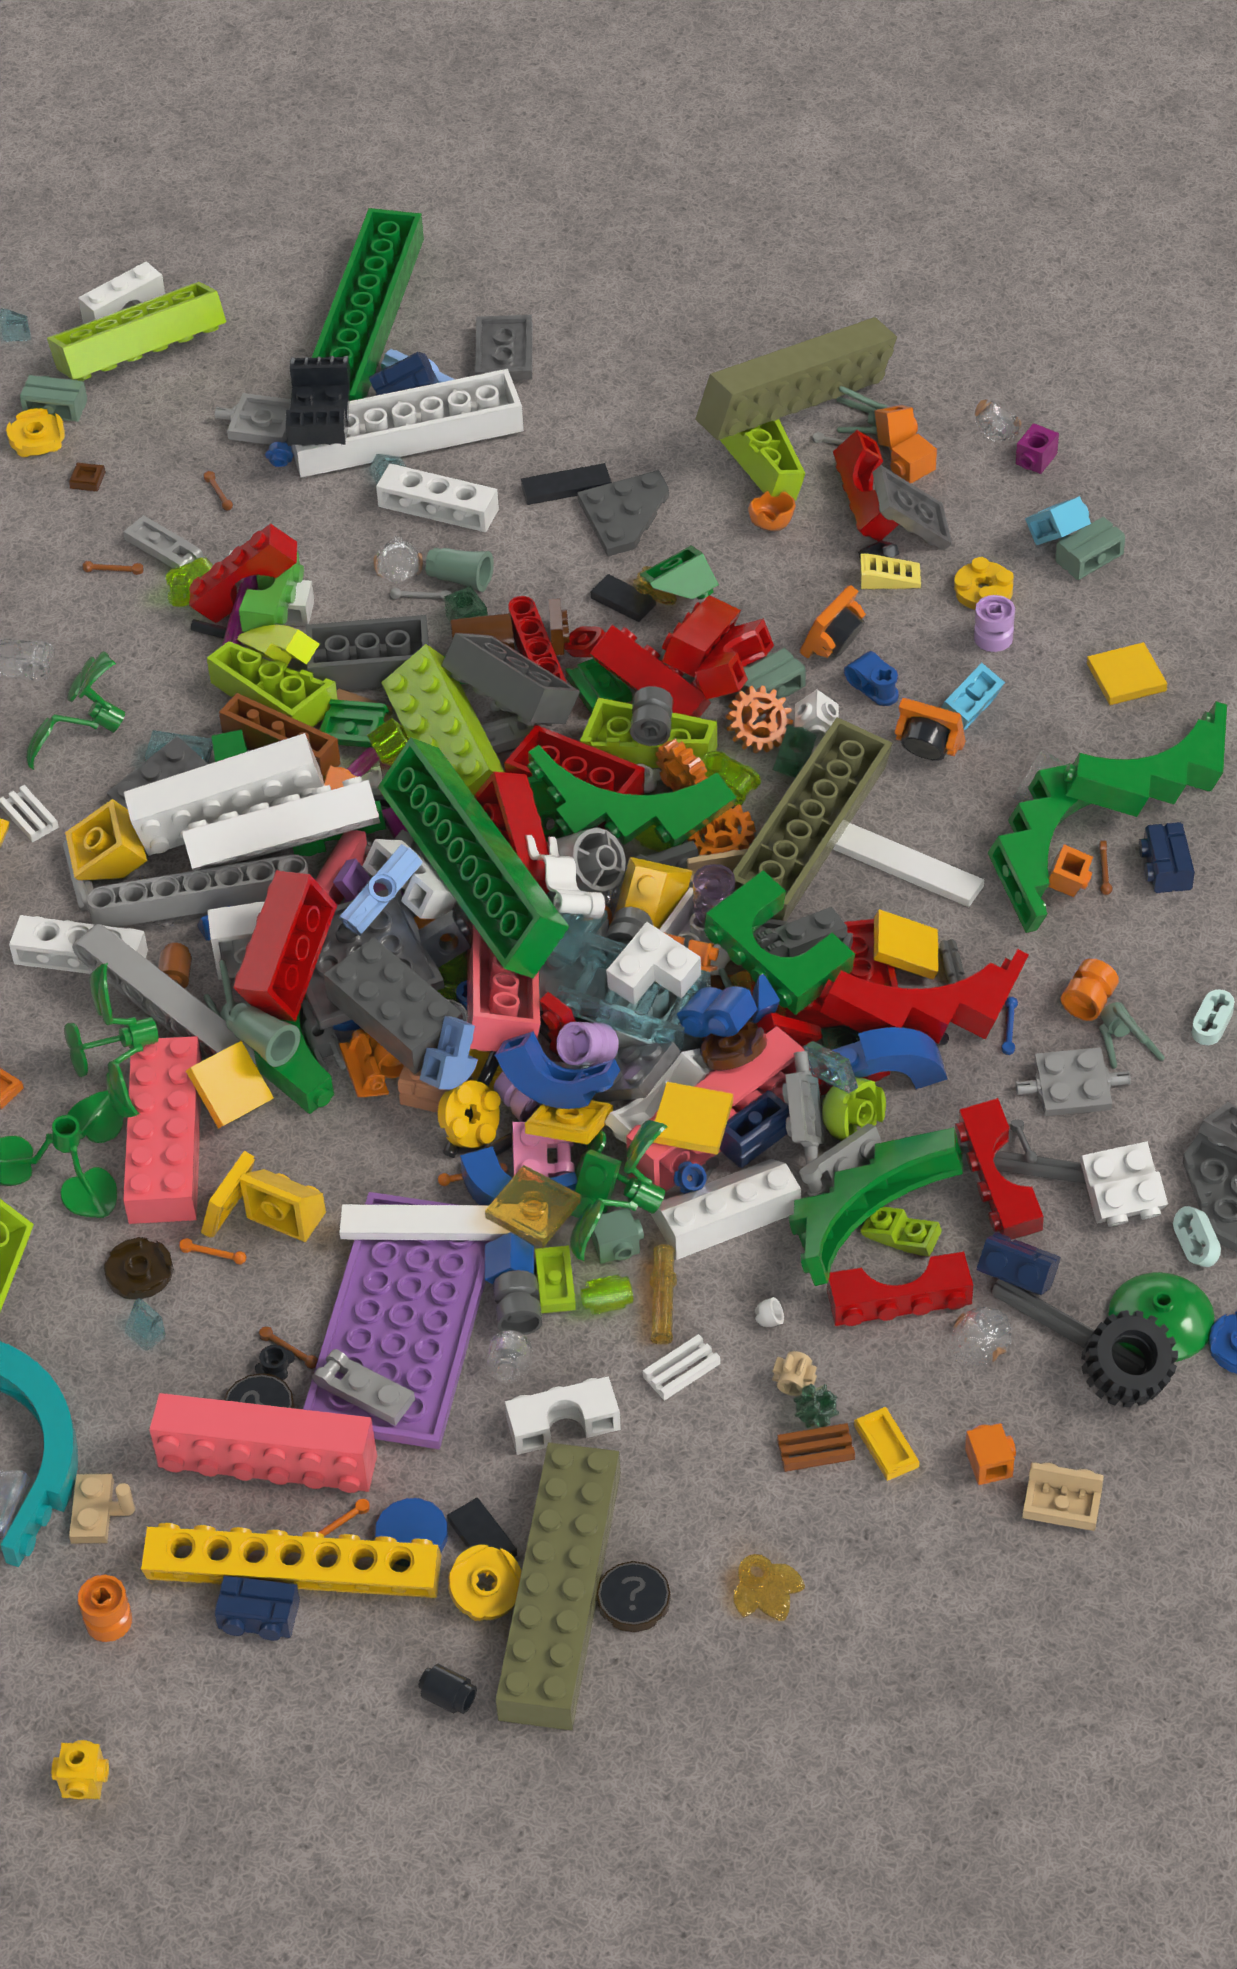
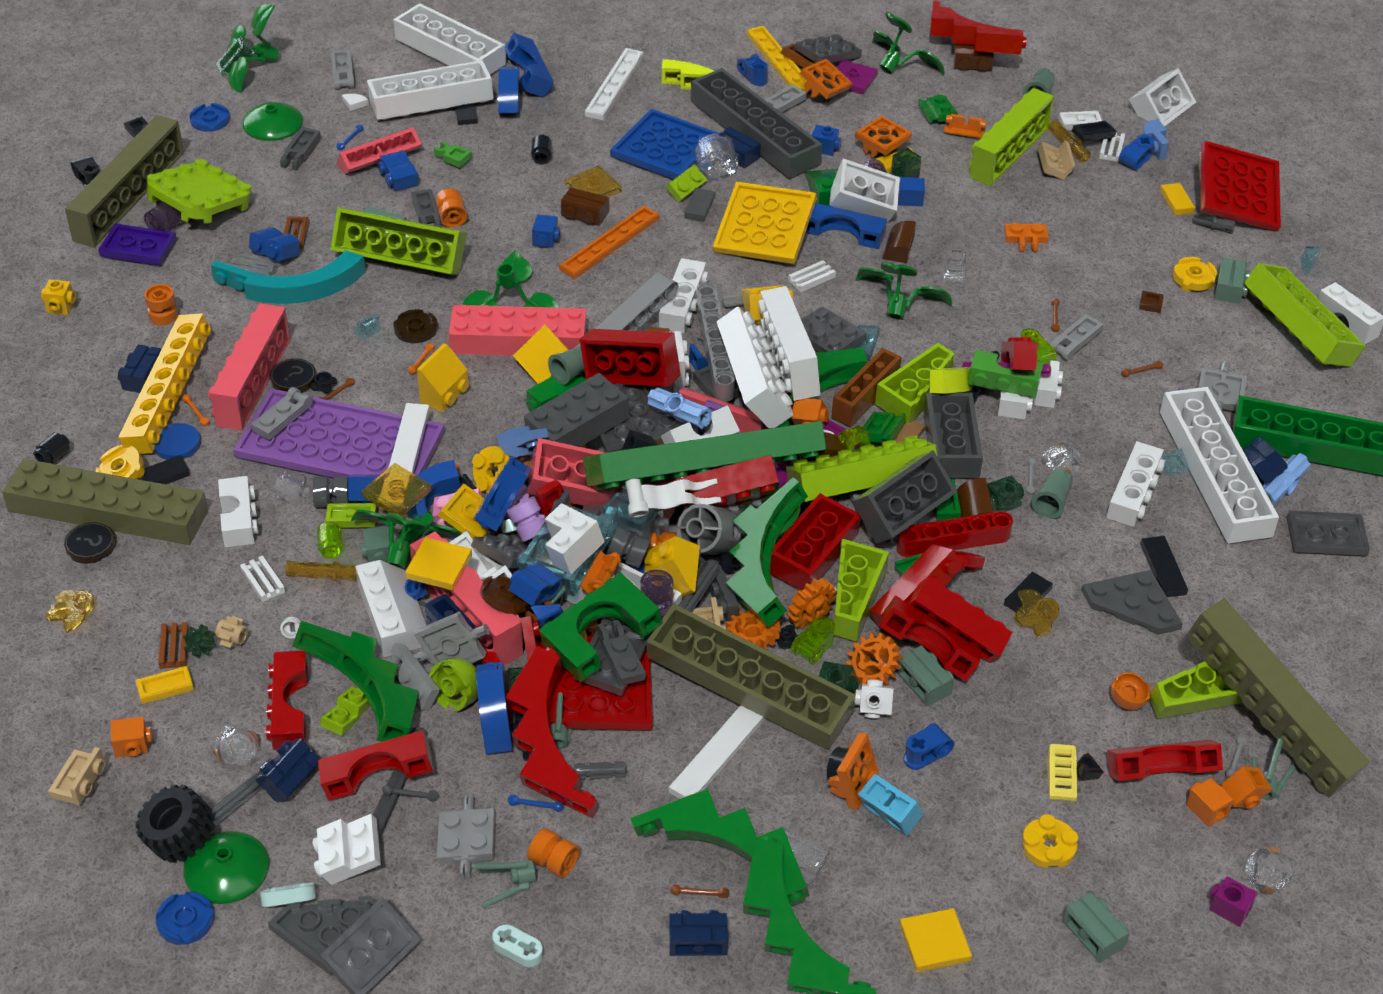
camera: 90 degrees right, 5 degrees down
(94, 1507) = (238, 307): tan plate -> none
(133, 1035) = (589, 290): green plant -> none
(226, 1196) = (435, 340): yellow tile -> none
(318, 401) = (1210, 400): black plate -> none
(558, 626) = (983, 542): reddish brown plate -> none
(651, 716) = (853, 570): dark grey wheel -> none
(683, 574) = (1029, 613): slope -> none
(831, 1067) = (476, 651): clear light blue plate -> none
(835, 626) = (979, 716): orange piece -> none
(905, 944) = (619, 733): yellow tile -> none
(911, 508) = (1127, 781): flat silver plate -> none
(994, 623) = (988, 835): lavender wheel -> none
(1058, 520) = (1118, 894): medium azure brick -> none
(1070, 871) = (683, 852): orange brick -> none

